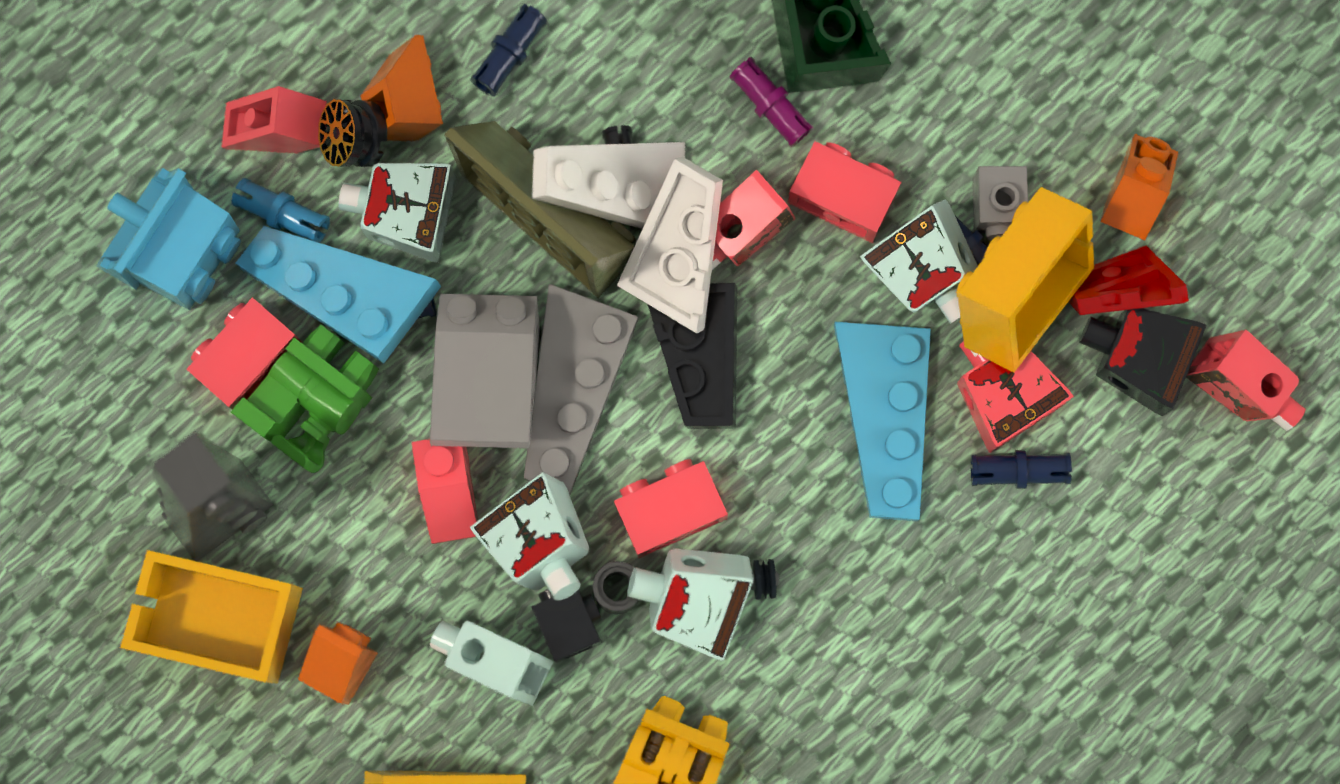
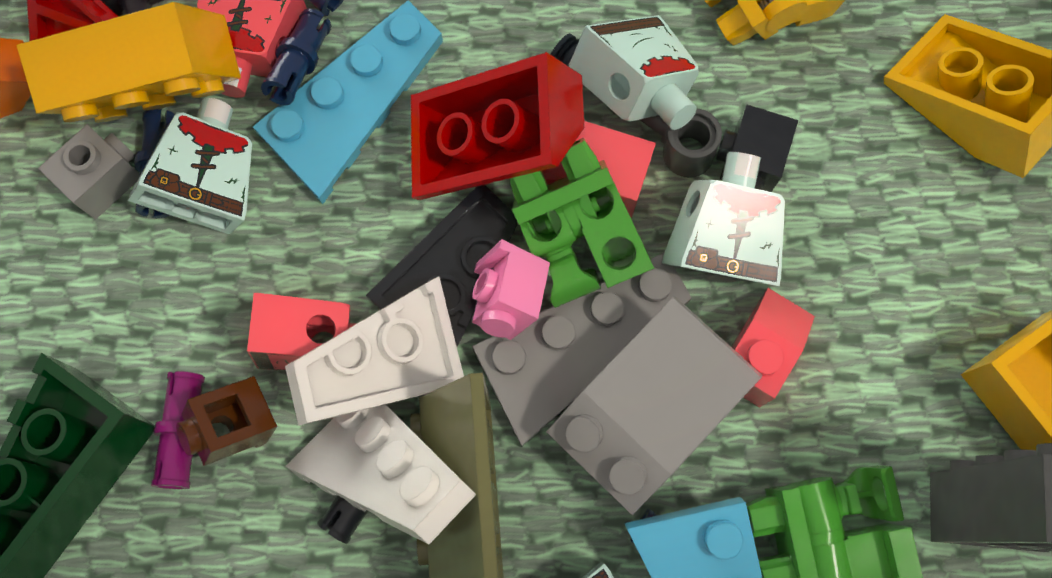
camera: 140 degrees left, 5 degrees down
(337, 661) = (982, 276): orange slope -> none
(504, 665) = (849, 165): light aqua torso -> none
(641, 361) = (508, 290): none -> bright pink brick
(647, 460) = (575, 207): none -> bright green hips
(733, 144) = (236, 406): none -> reddish brown brick
(746, 452) = (494, 125): none -> red slope
(844, 190) = (198, 292): coral brick -> none
(949, 402) = (296, 57): none -> dark blue pin

